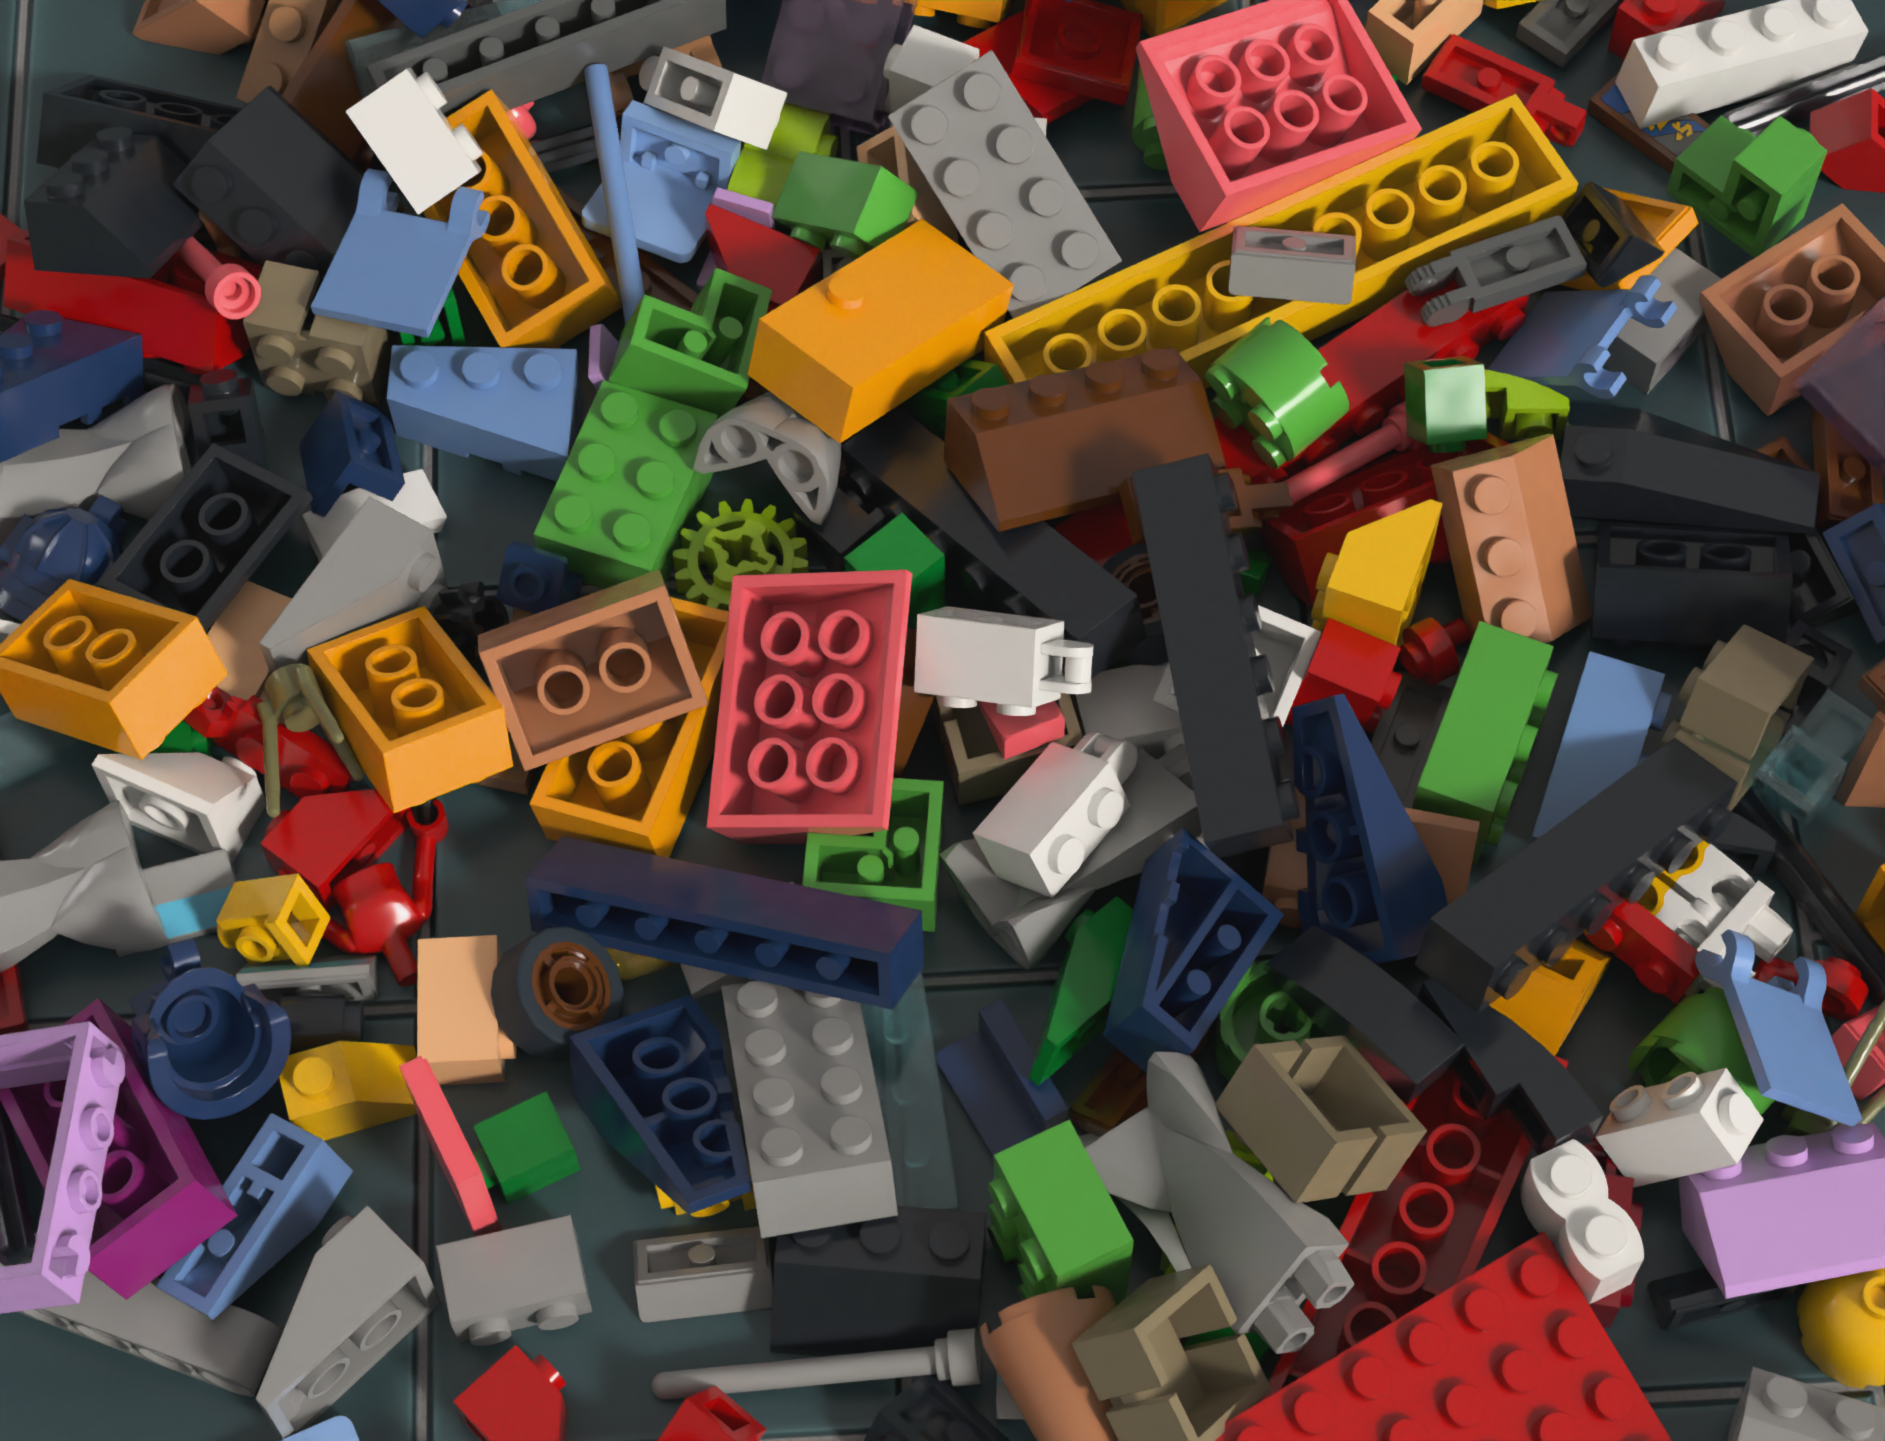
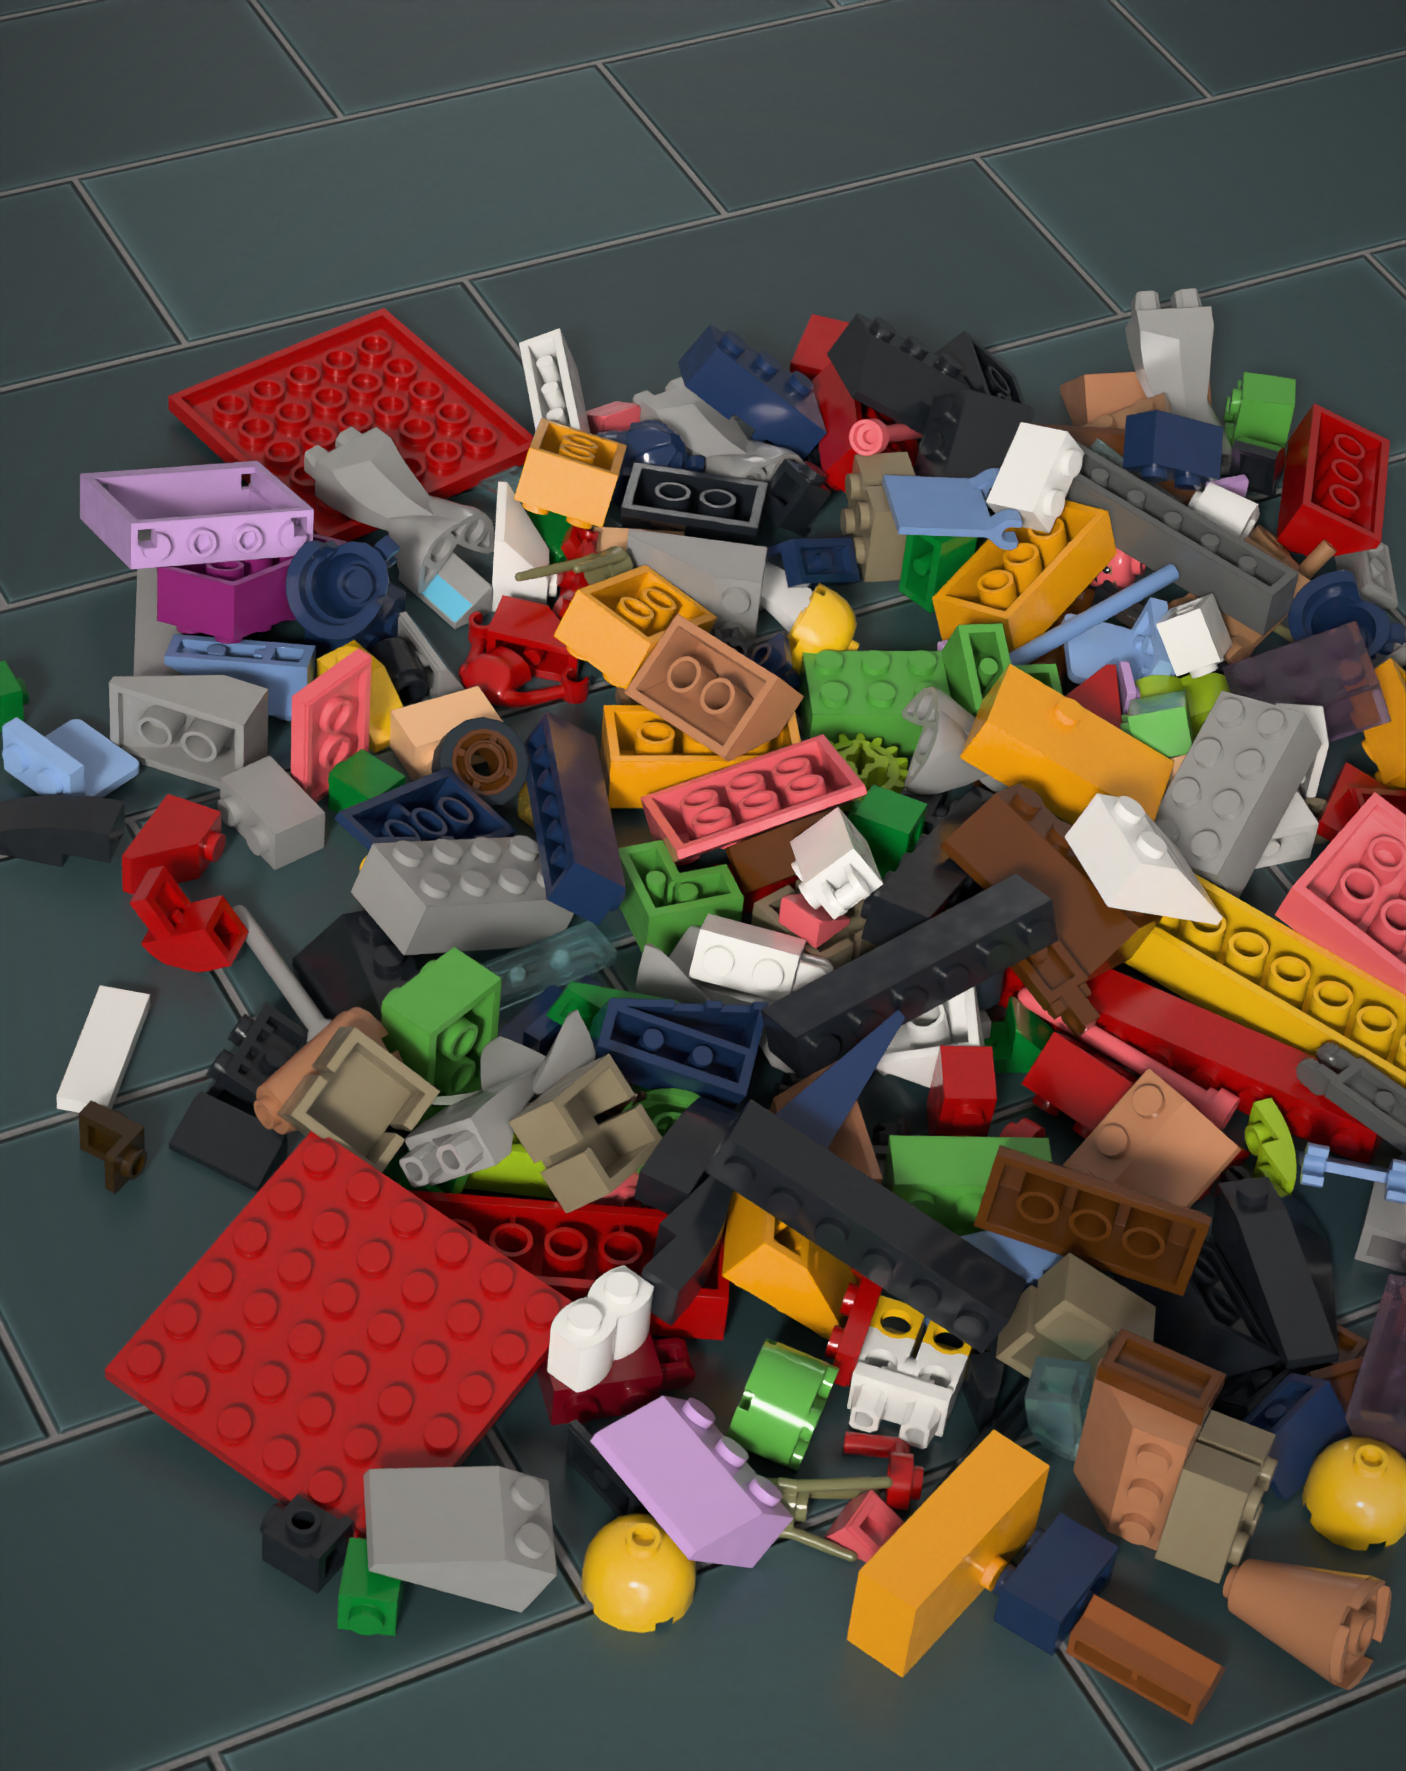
camera: 60 degrees right, 20 degrees down
(260, 921) = (448, 618): yellow brick -> none
(489, 403) = (894, 605): medium blue wedge -> none
(490, 502) = (823, 625): none -> yellow cylinder
(702, 1274) = (317, 899): light grey slope -> none
(1129, 339) = (1136, 862): none -> white slope
(1275, 391) = (1162, 978): bright green brick -> none
(1292, 265) = (1283, 970): light grey slope -> none
(1379, 574) = (1050, 1077): yellow slope -> none
(1445, 402) = (1233, 1093): brick -> none
(1641, 626) = (1092, 1220): none -> reddish brown slope
(1679, 1127) = (712, 1371): white brick -> none
(1783, 1030) = (815, 1417): medium blue flag -> none

